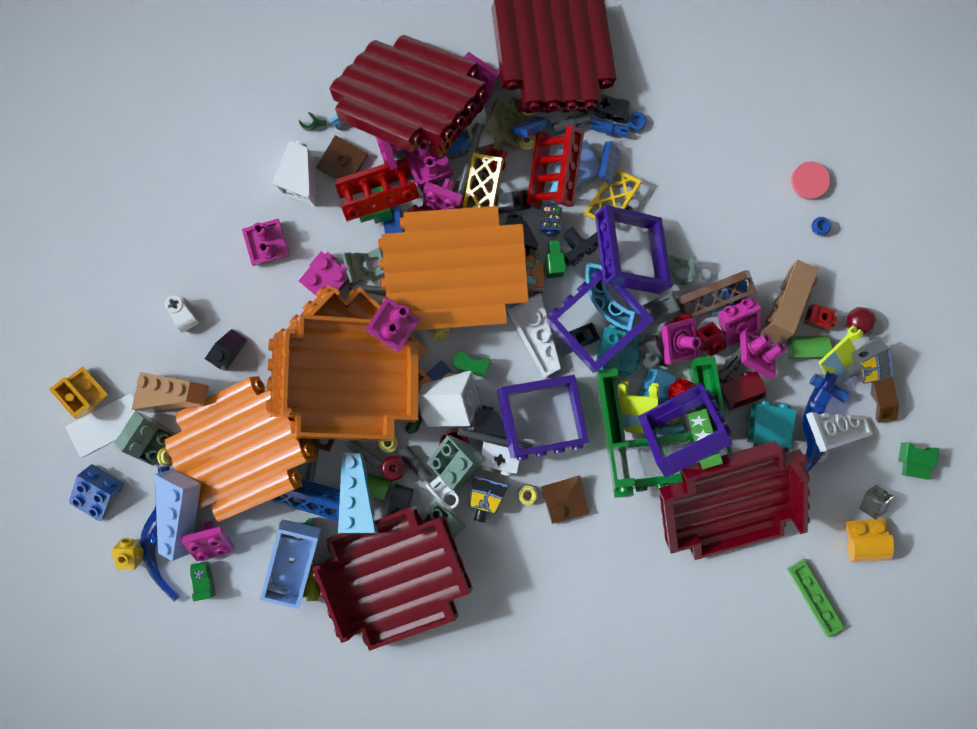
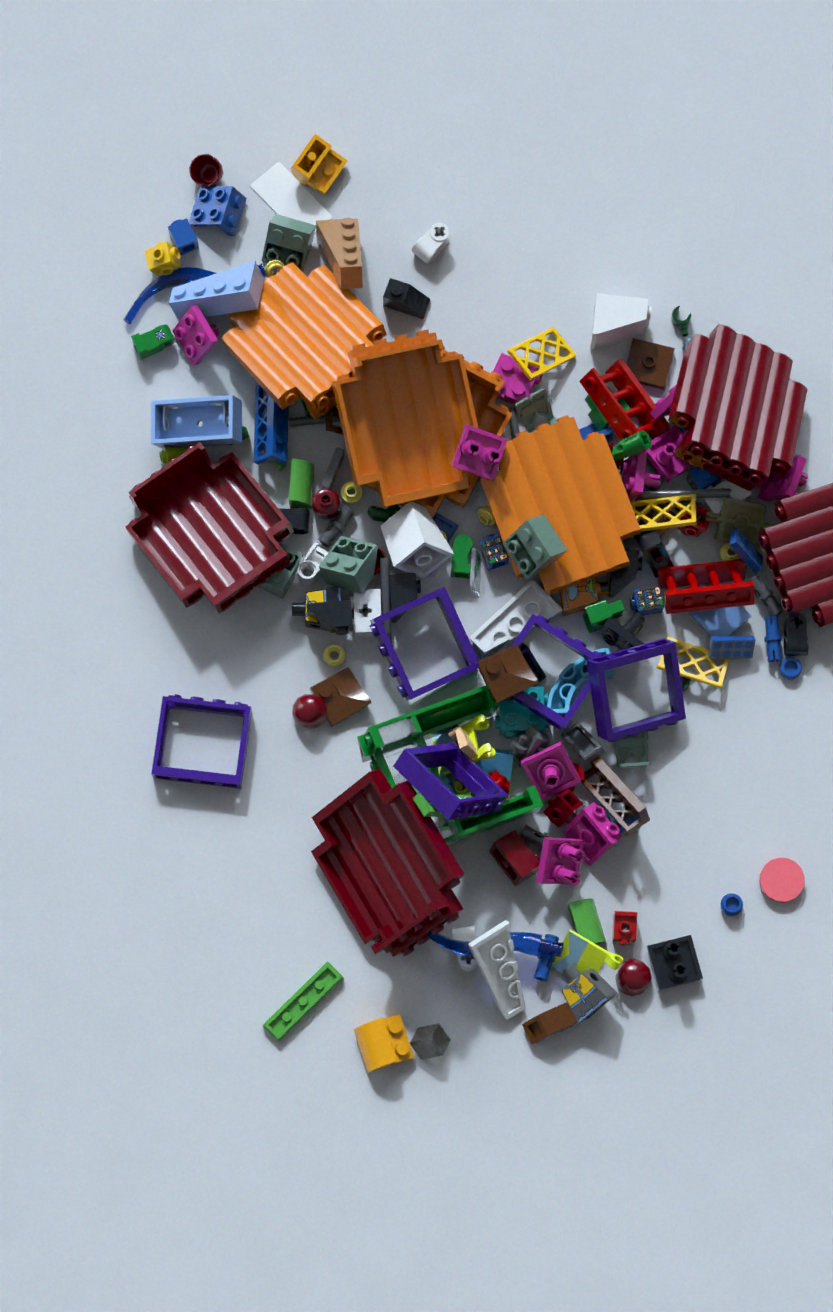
camera: 75 degrees right, 10 degrees down
(55, 494) = (206, 171): none -> dark red hair
(111, 530) = (183, 236): none -> blue brick
(265, 242) = (534, 308): dark pink plate -> none
(315, 265) = (542, 368): none -> yellow window
(355, 505) = (275, 469): medium azure wing -> none
(420, 192) = (631, 446): none -> green hinge
(473, 336) = (493, 551): none -> brick
(489, 299) = (534, 546): none -> sand green slope
(489, 356) = (475, 574): none -> clear piece
(500, 489) = (333, 615): none -> black slope
(572, 529) = (309, 711): none -> dark red hair
(597, 355) = (506, 673): none -> reddish brown plate
(604, 642) = (193, 776): none -> dark purple window
(638, 406) = (465, 743): none -> light nougat slope
(771, 424) = (484, 898): teal brick -> none
(791, 302) = (631, 885): medium nougat wedge -> none
(858, 285) = (674, 962): none -> black plate
(917, 461) = (490, 1078): green piece -> none

